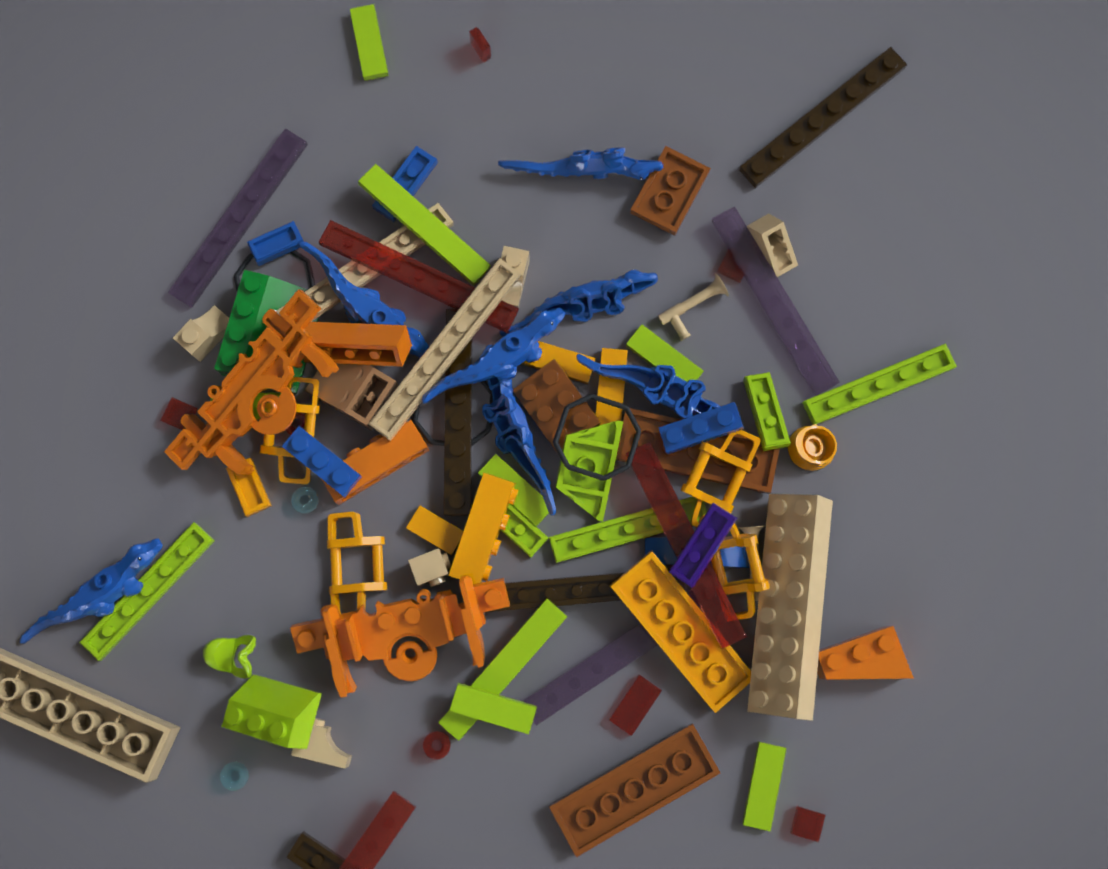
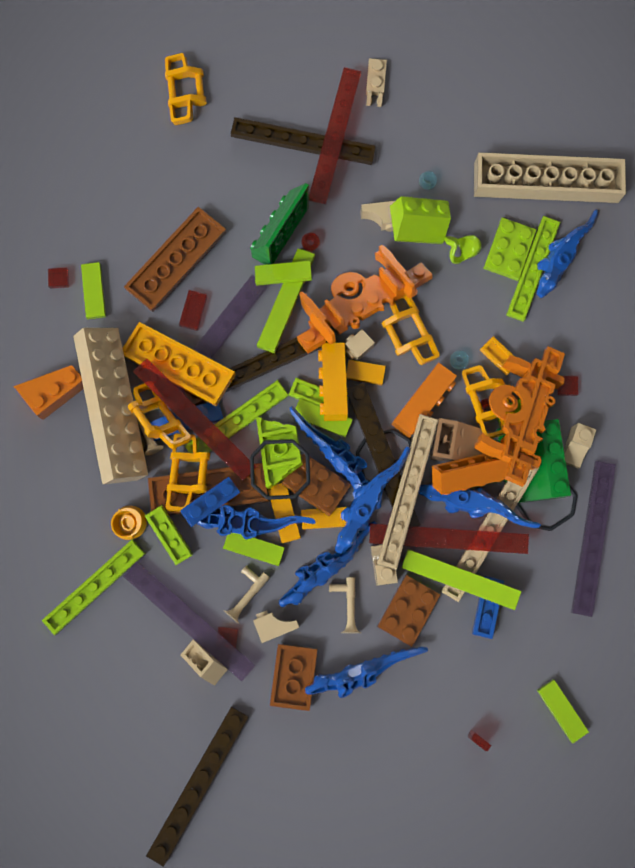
camera: 155 degrees right, 0 degrees up
(166, 630) = (509, 249): none -> lime plate
(275, 243) = (558, 528): blue tile -> none
(321, 461) = (458, 384): blue plate -> none
(470, 780) = (281, 225): none -> green slope
(502, 216) = (408, 610): none -> dark orange plate
(563, 266) = (349, 588): none -> tan piece
(674, 253) = (270, 627): none -> tan arch
(703, 545) = (181, 419): dark purple tile -> none

